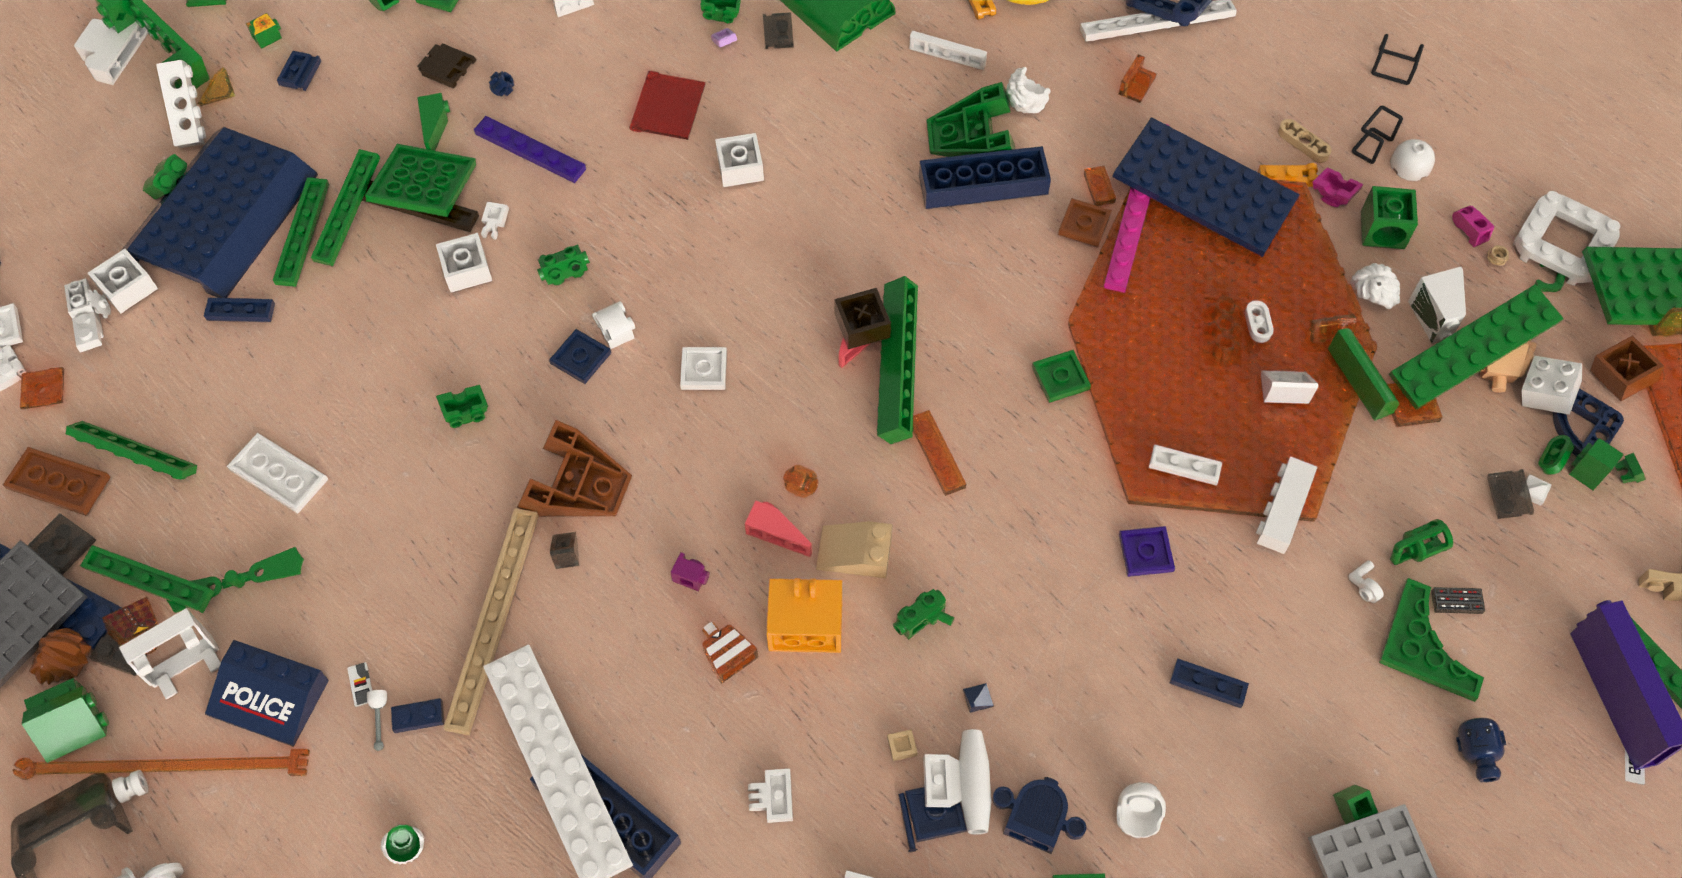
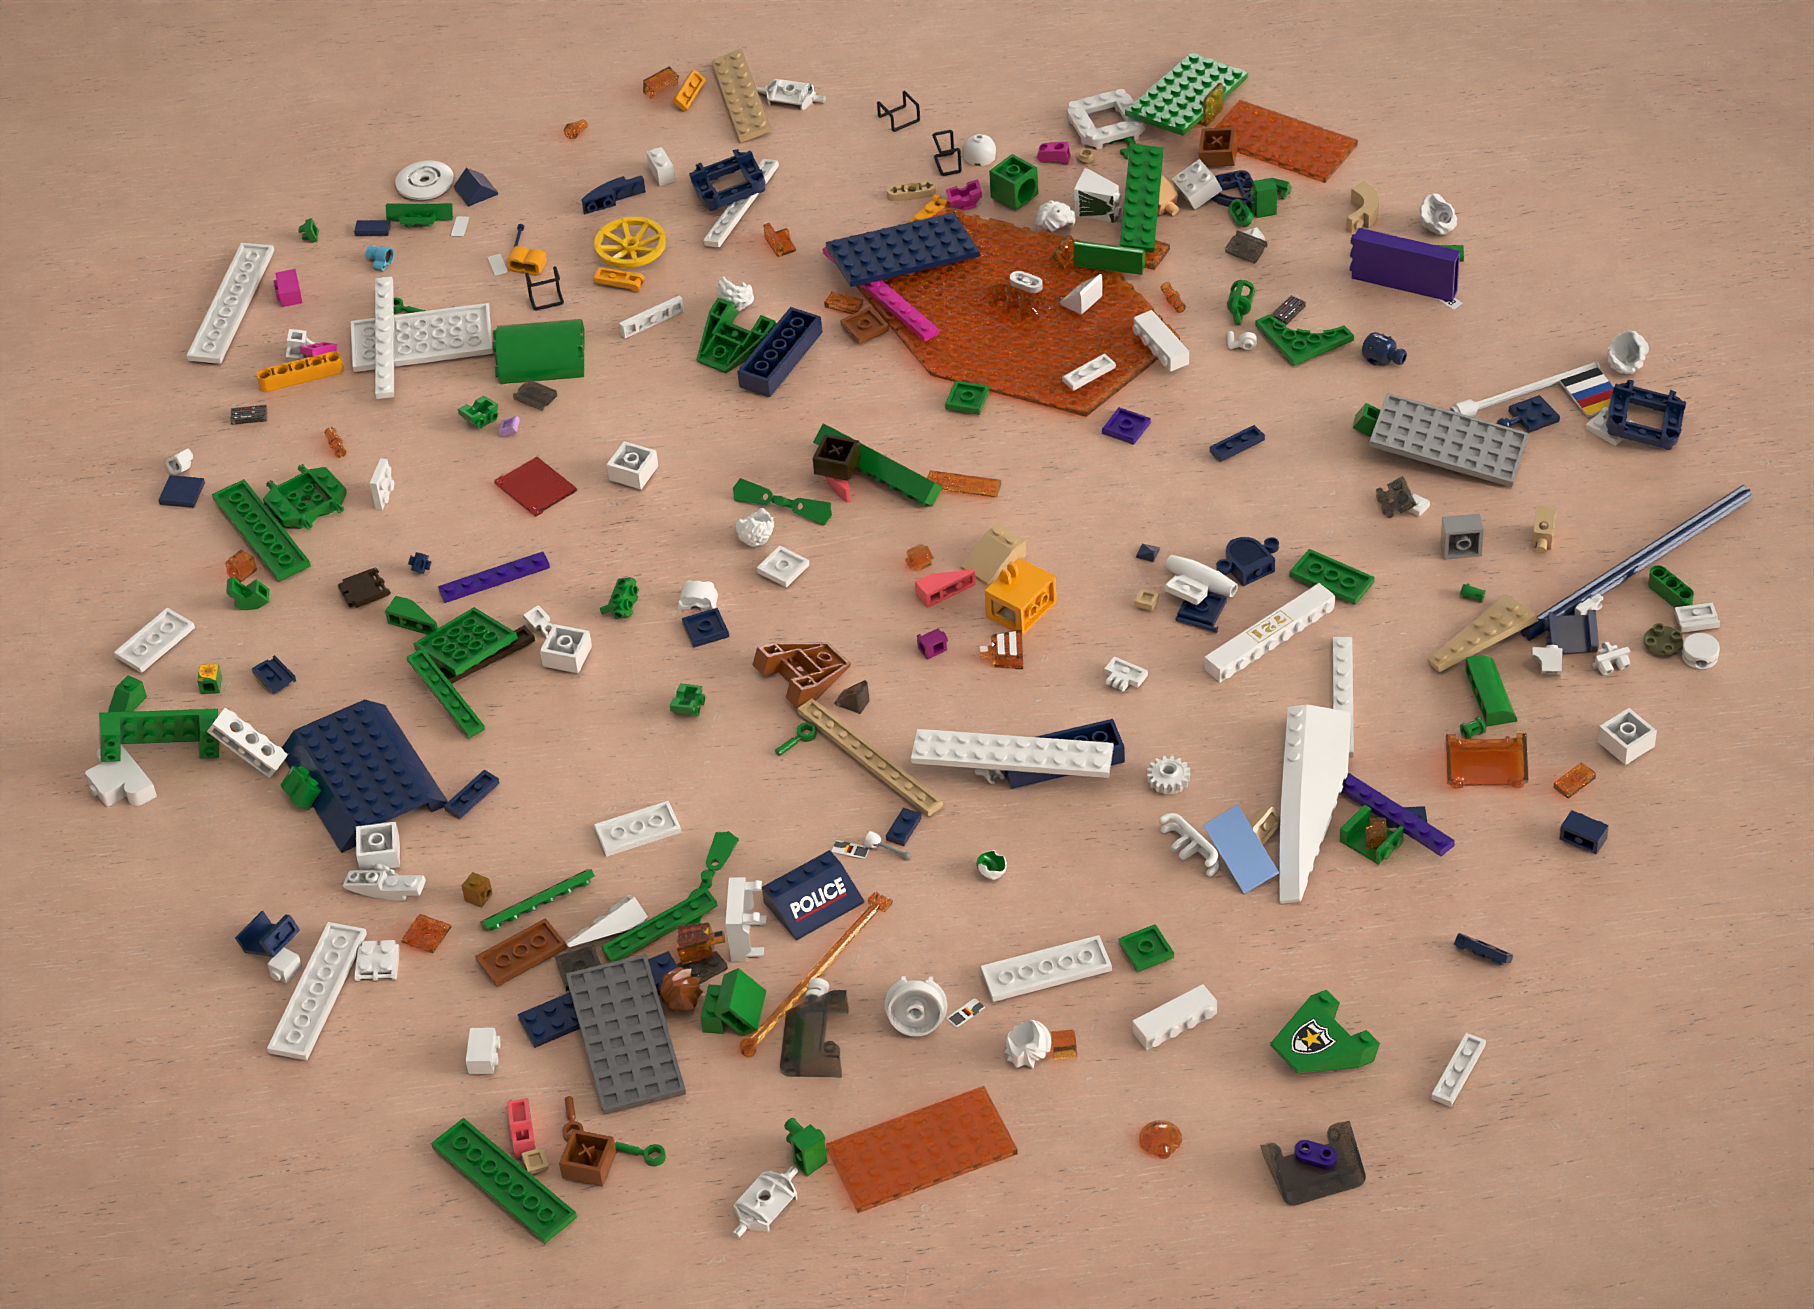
camera: 50 degrees left, 15 degrees down
(114, 392) = (476, 889): none -> pearl gold brick
(133, 534) = (621, 917): none -> white wedge
(301, 232) = (435, 732): green plate -> none
(473, 532) = (800, 736): none -> green piece
(736, 311) = (755, 528): none -> white hair
(797, 340) = (812, 509): none -> green piece
(927, 609) = (1070, 540): green brick -> none
(1140, 810) = (1286, 510): white piece -> none
(1371, 472) = (1173, 297): none -> clear orange pin

